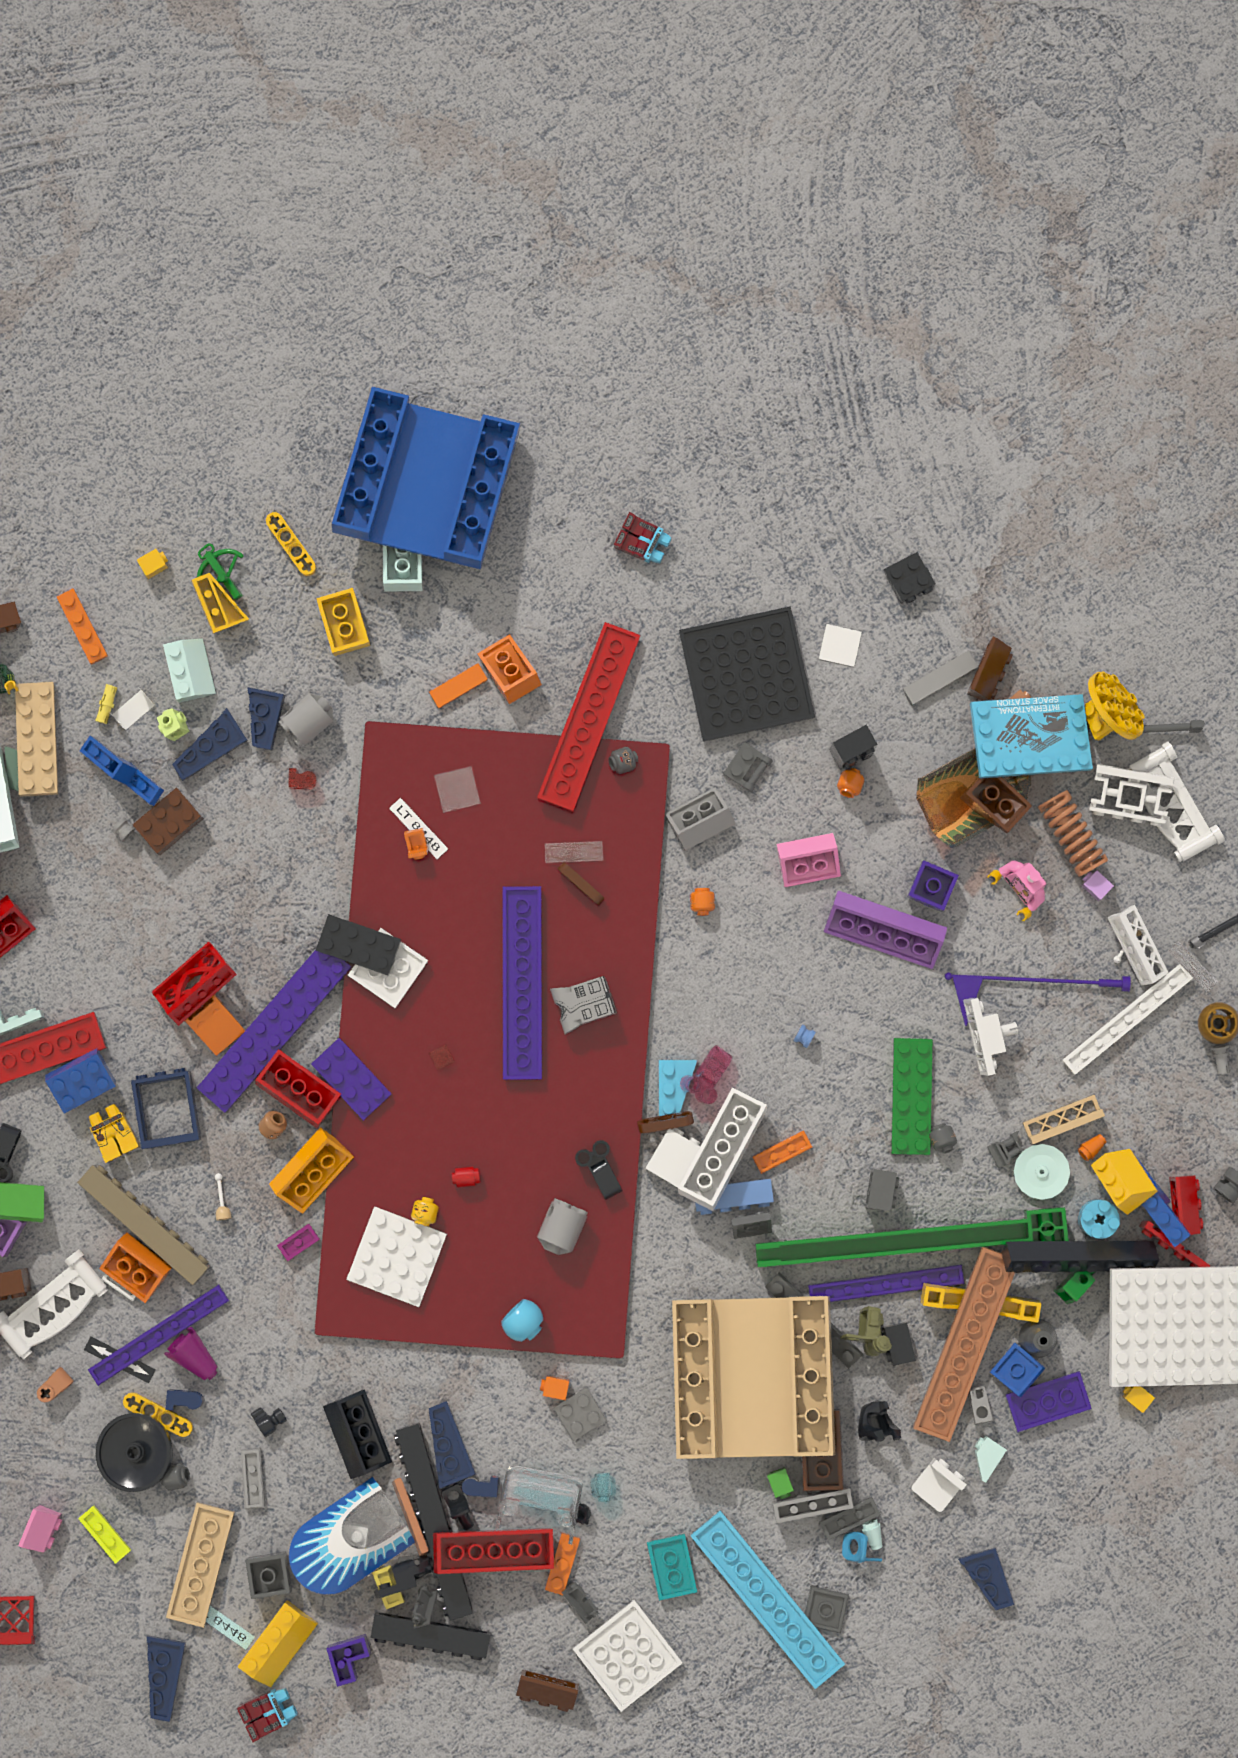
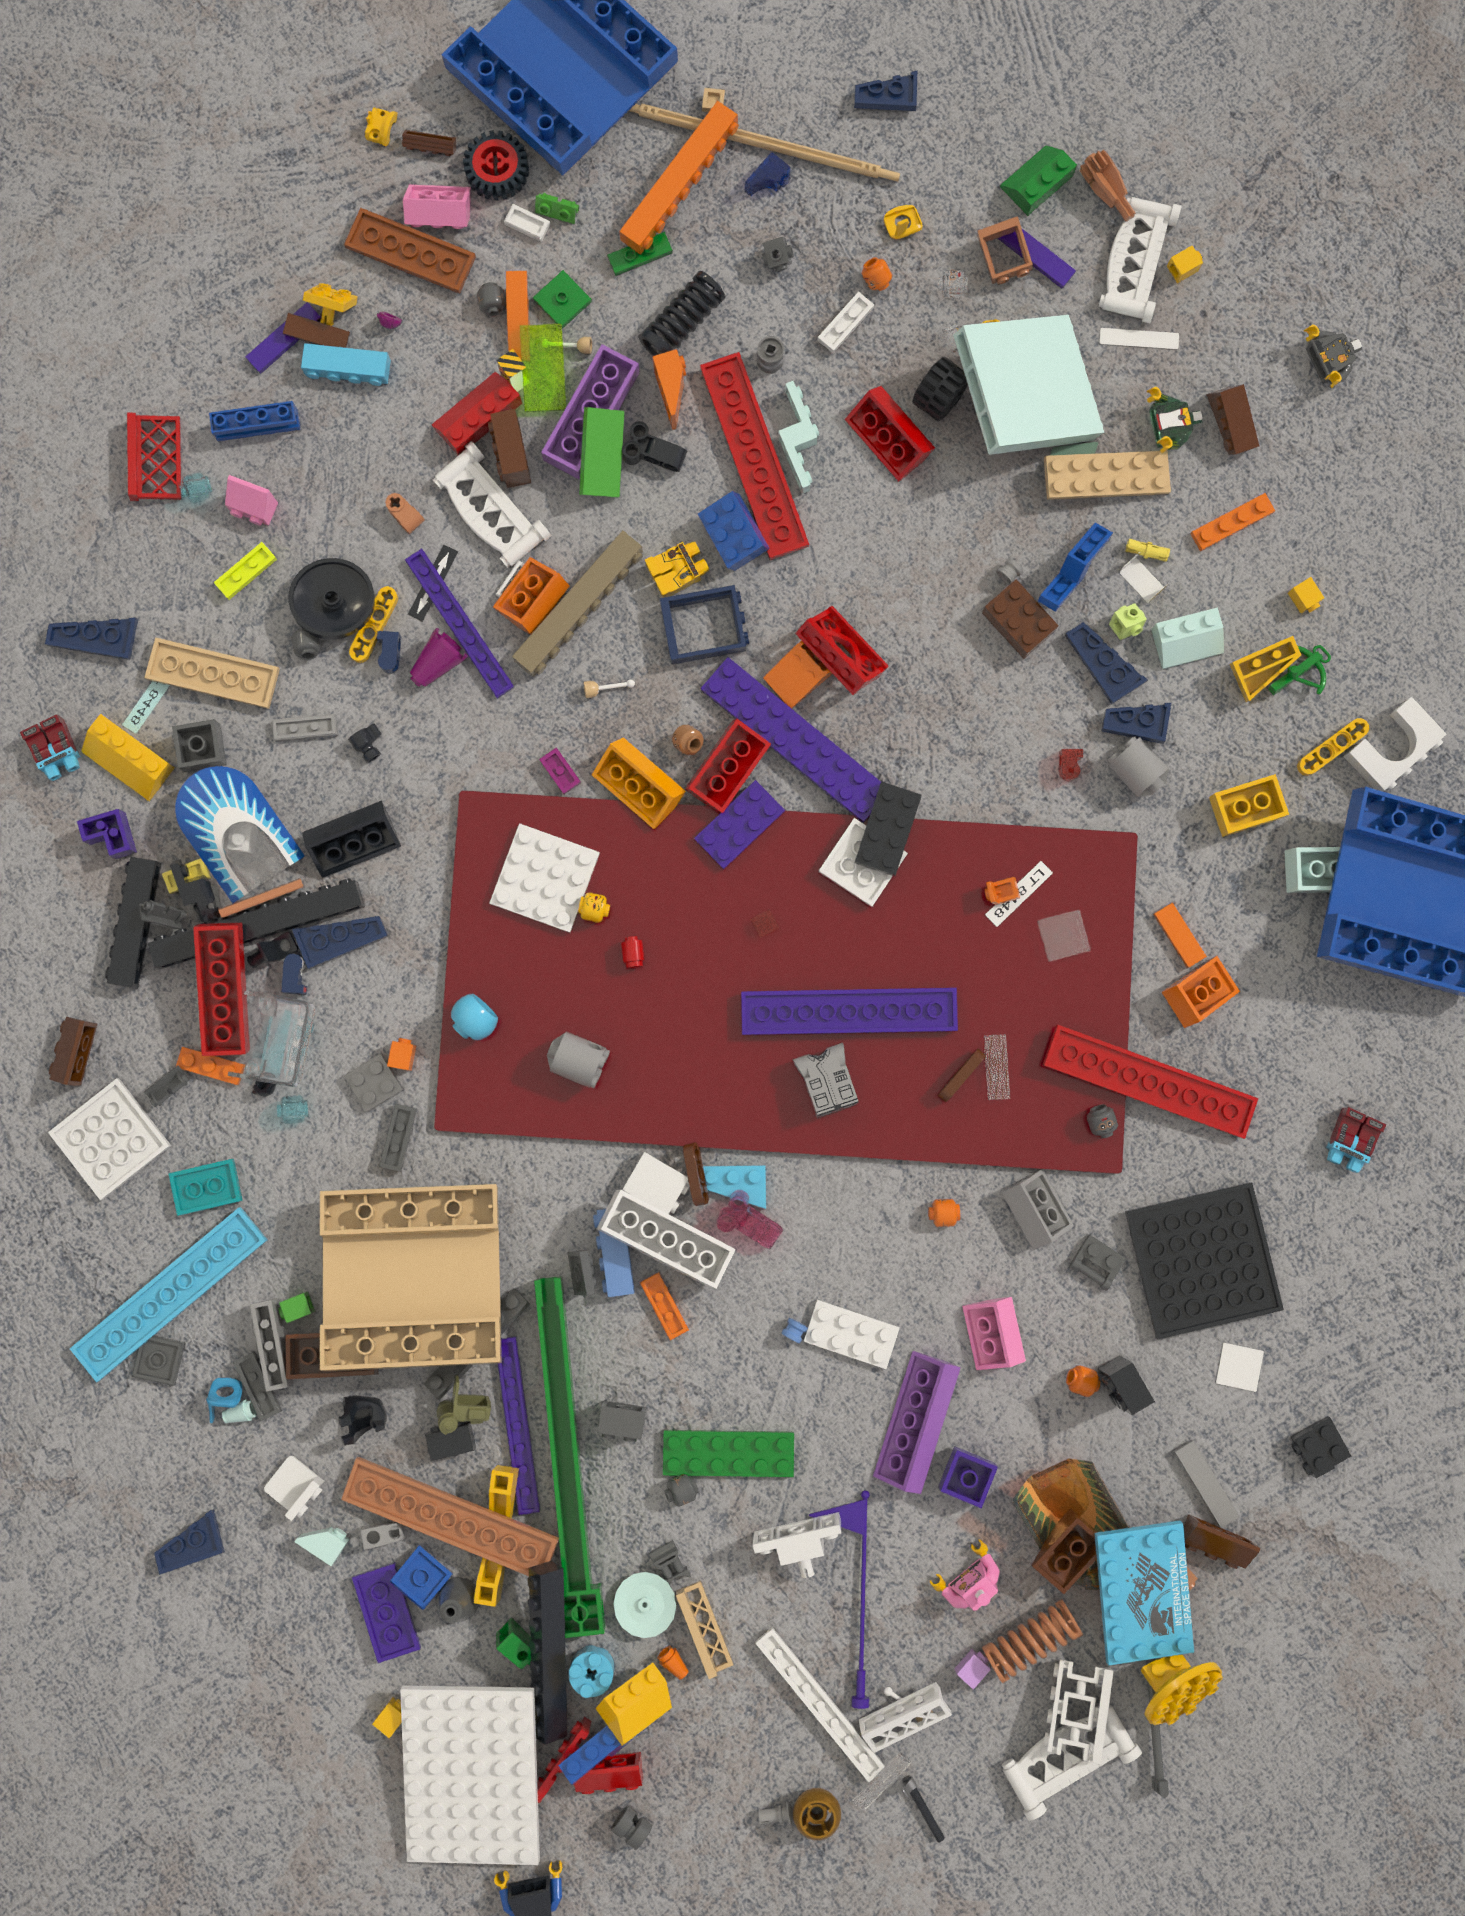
camera: 85 degrees right, 0 degrees up
(24, 1581) = (195, 487): none -> clear light blue head
(283, 464) = (1422, 736): none -> white arch
(601, 1170) = (641, 1102): black piece -> none
(629, 1391) = (398, 1137): none -> dark grey plate
(808, 985) = (851, 1334): none -> white plate

